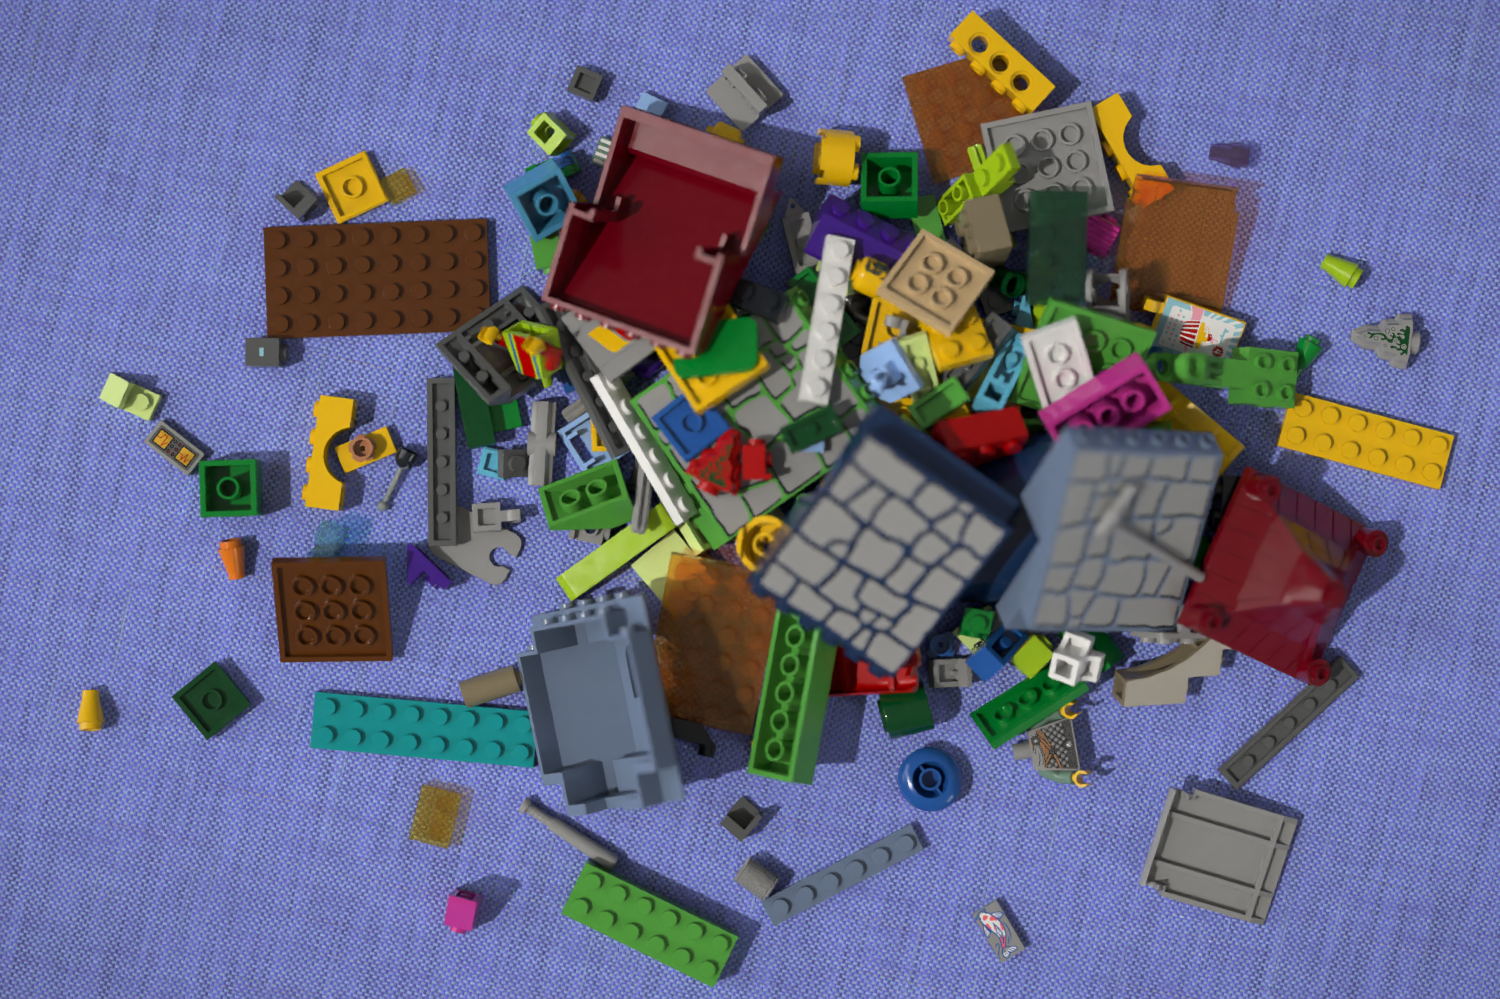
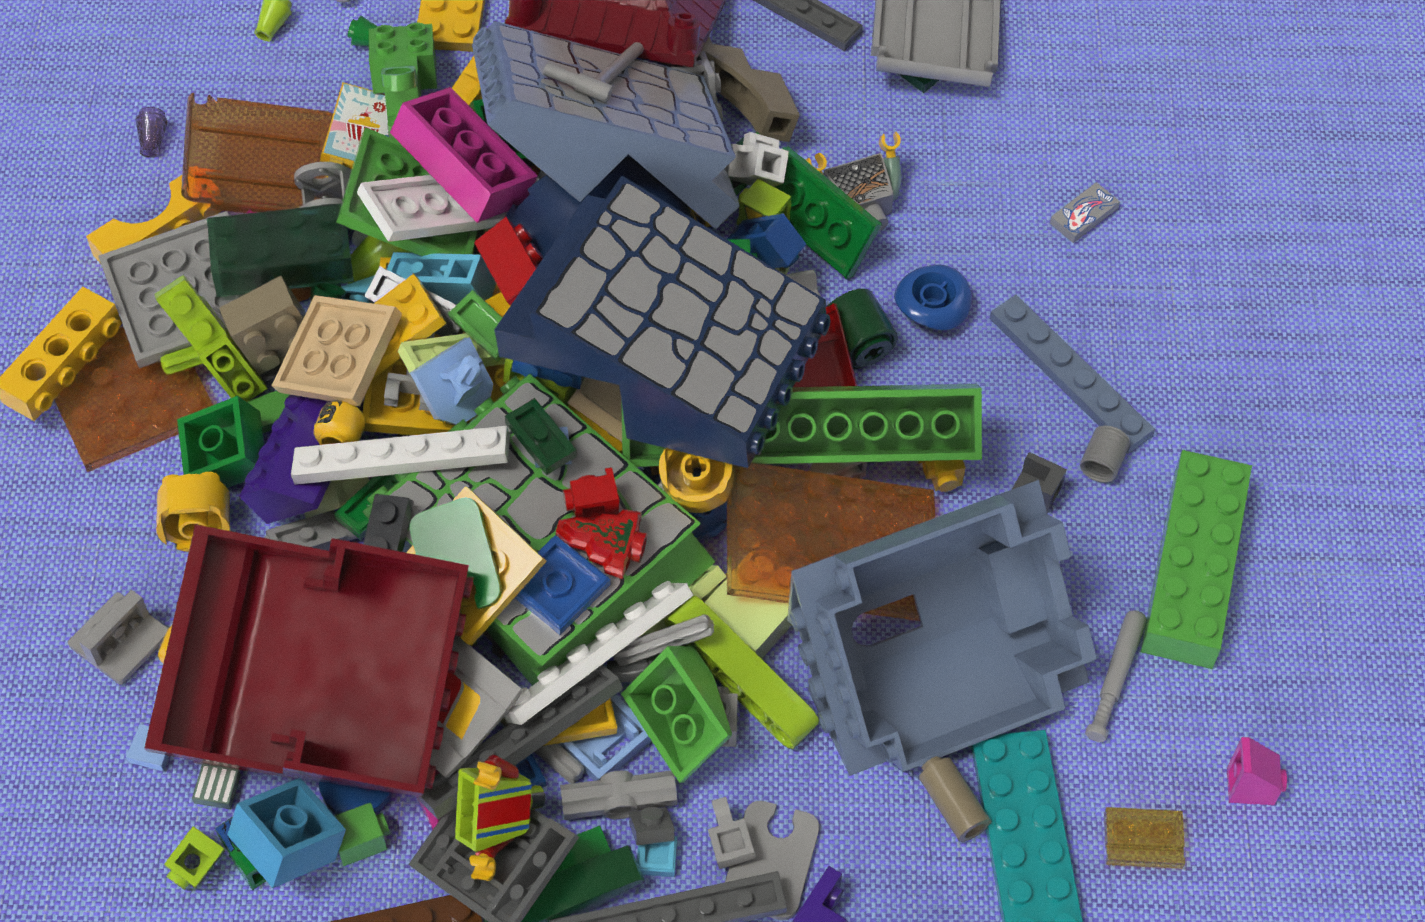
camera: 100 degrees left, 30 degrees down
(585, 84) = (121, 830): dark grey plate -> none

